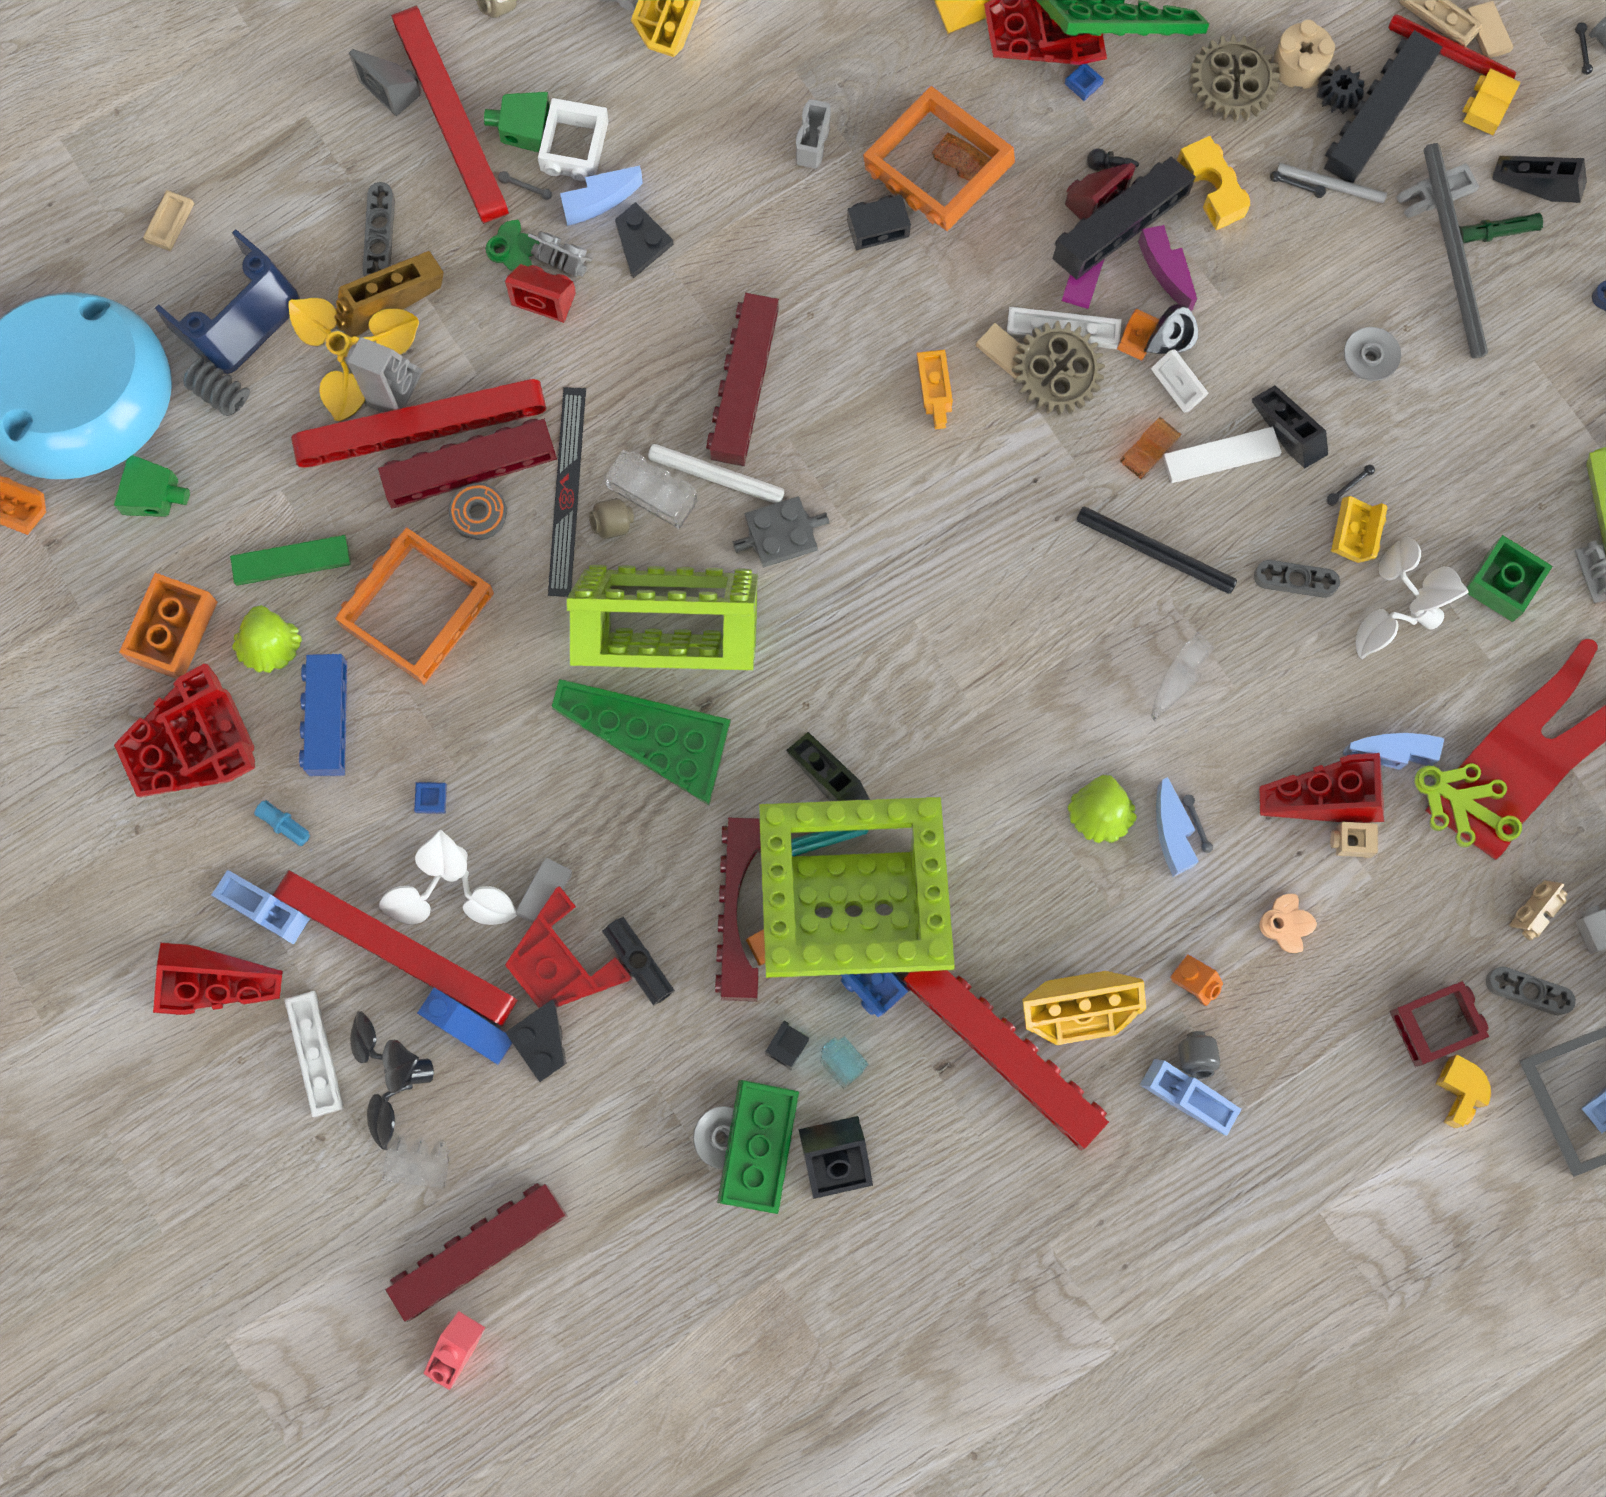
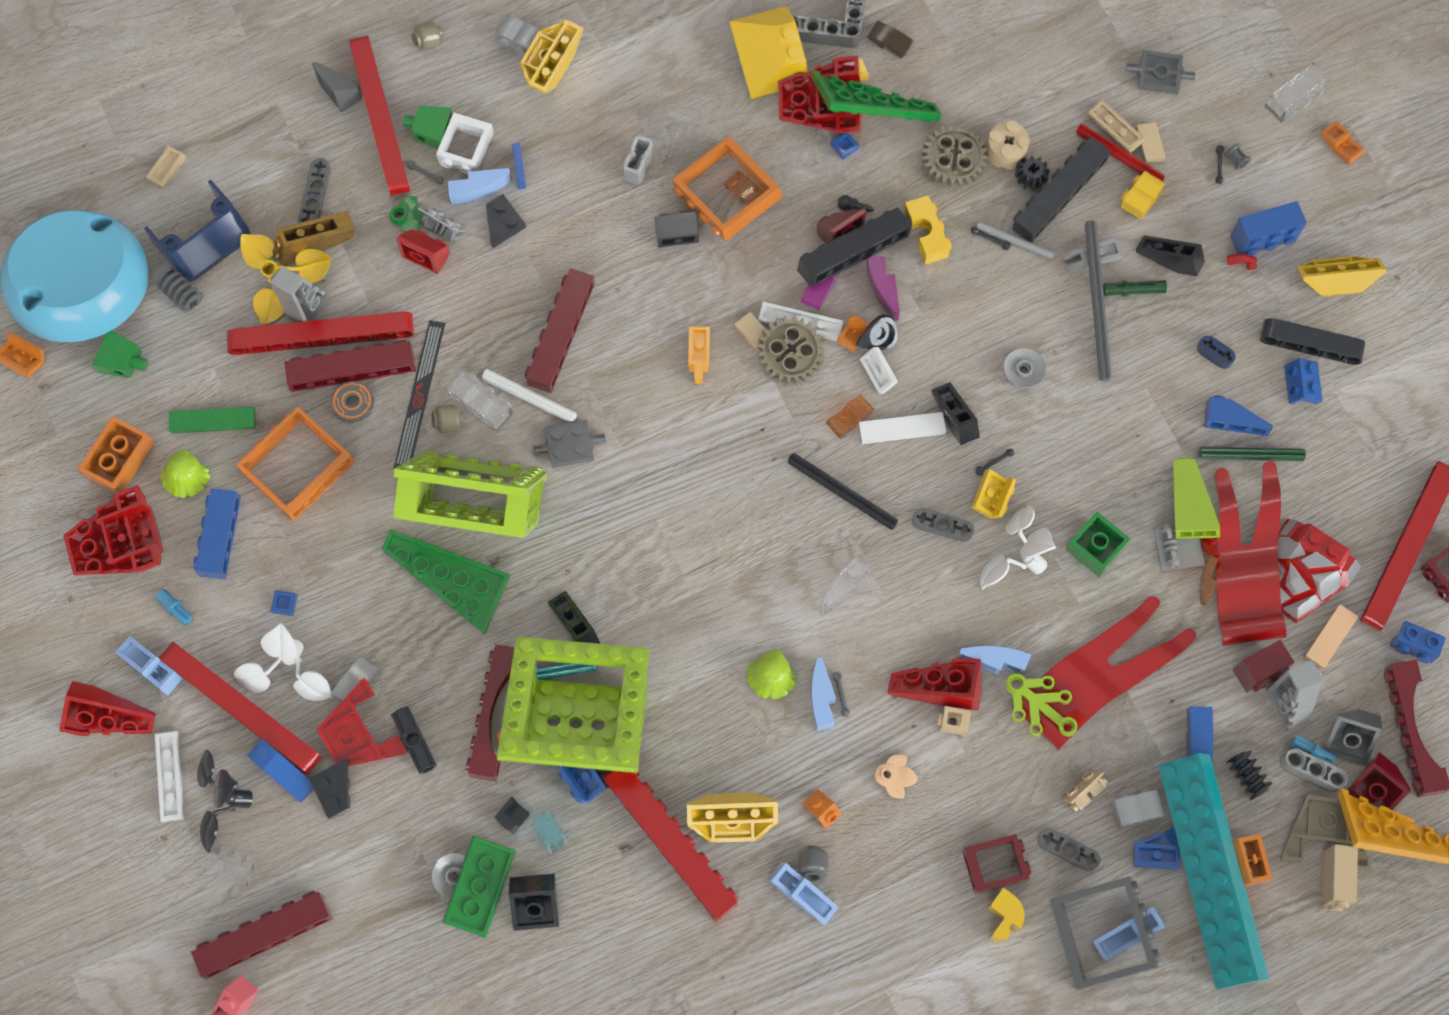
camera: 10 degrees right, 5 degrees down
(651, 161) = (519, 168): none -> tile

